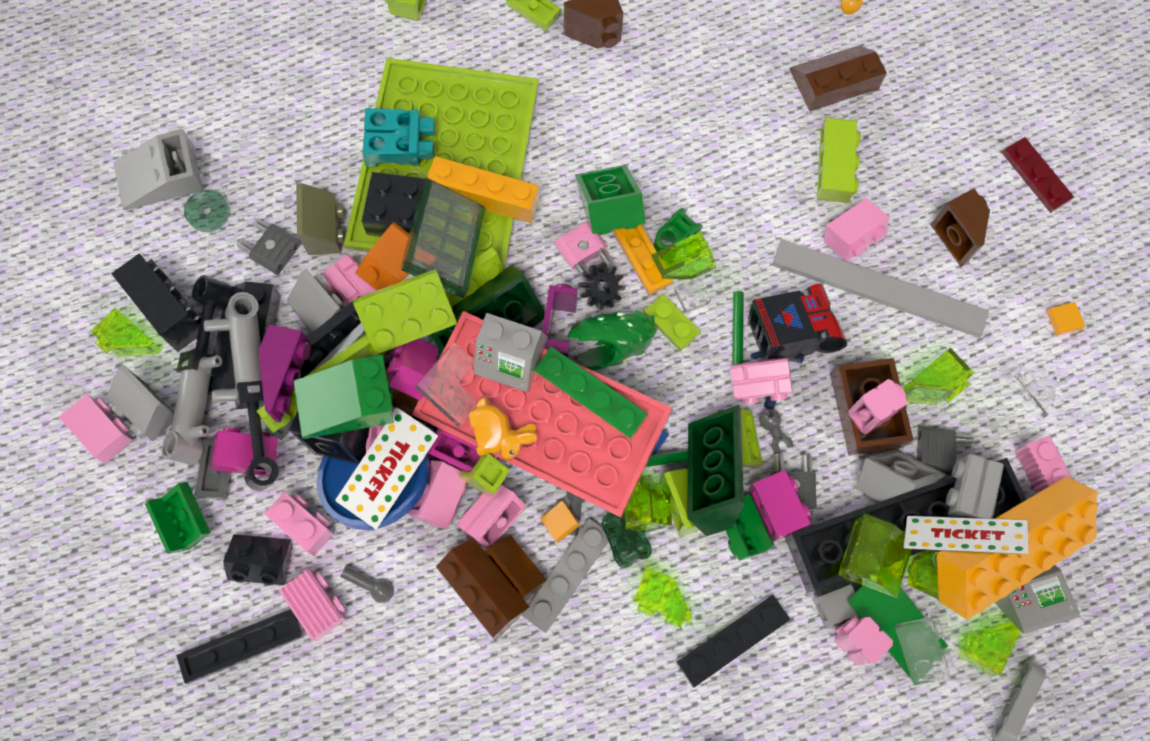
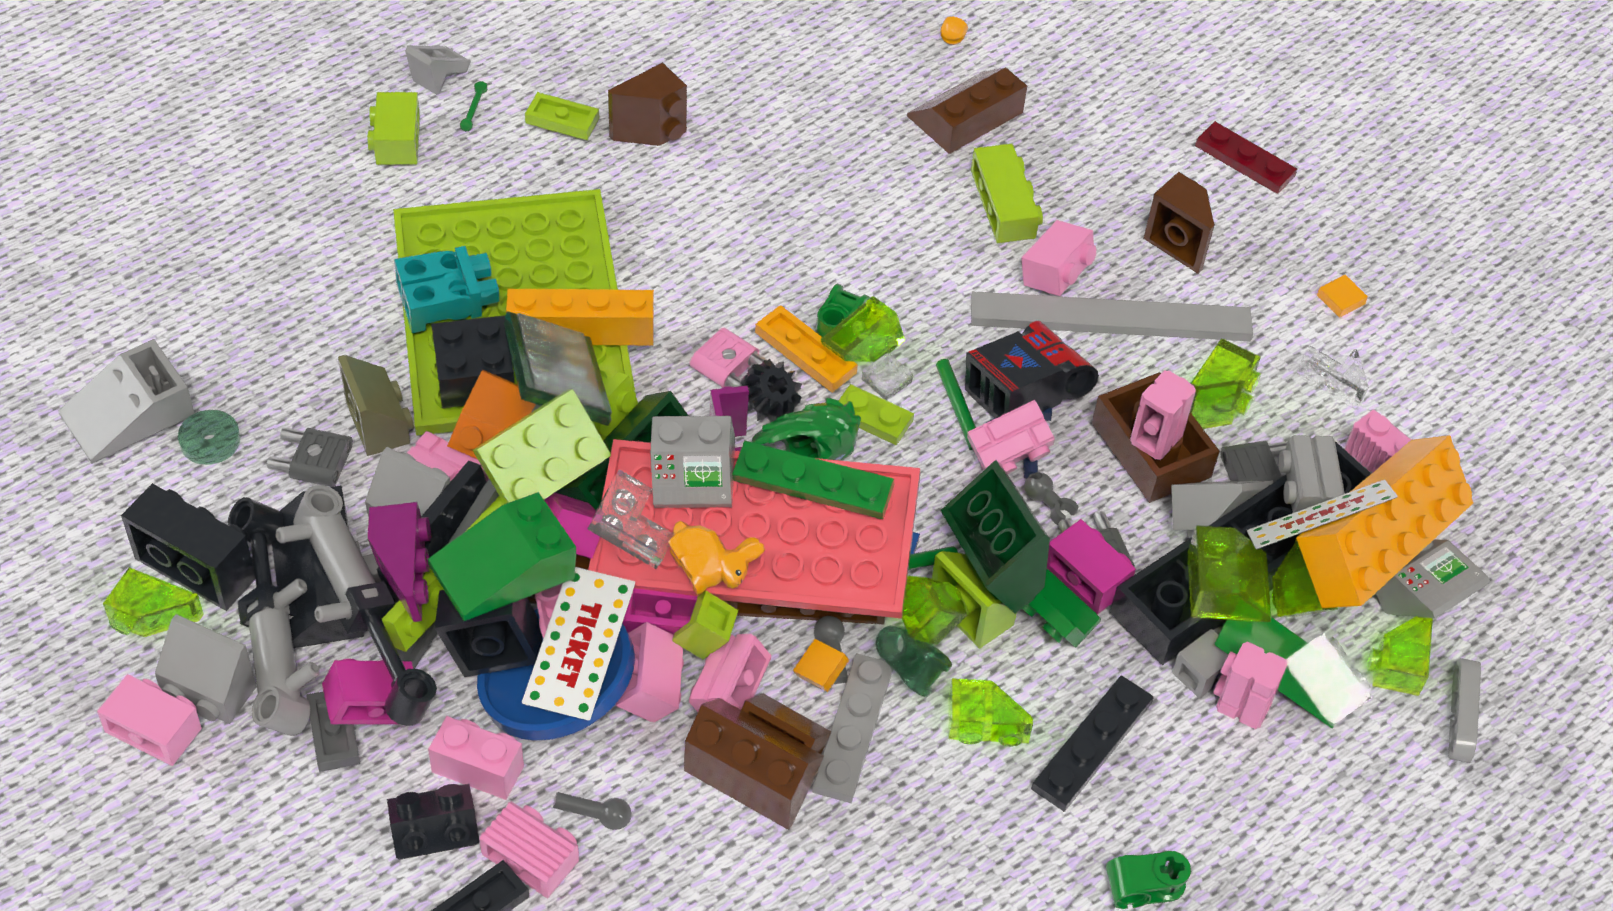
camera: 20 degrees left, 20 degrees down
(178, 519) = (307, 797): green bracket -> none
(611, 199) = (747, 294): green slope -> none

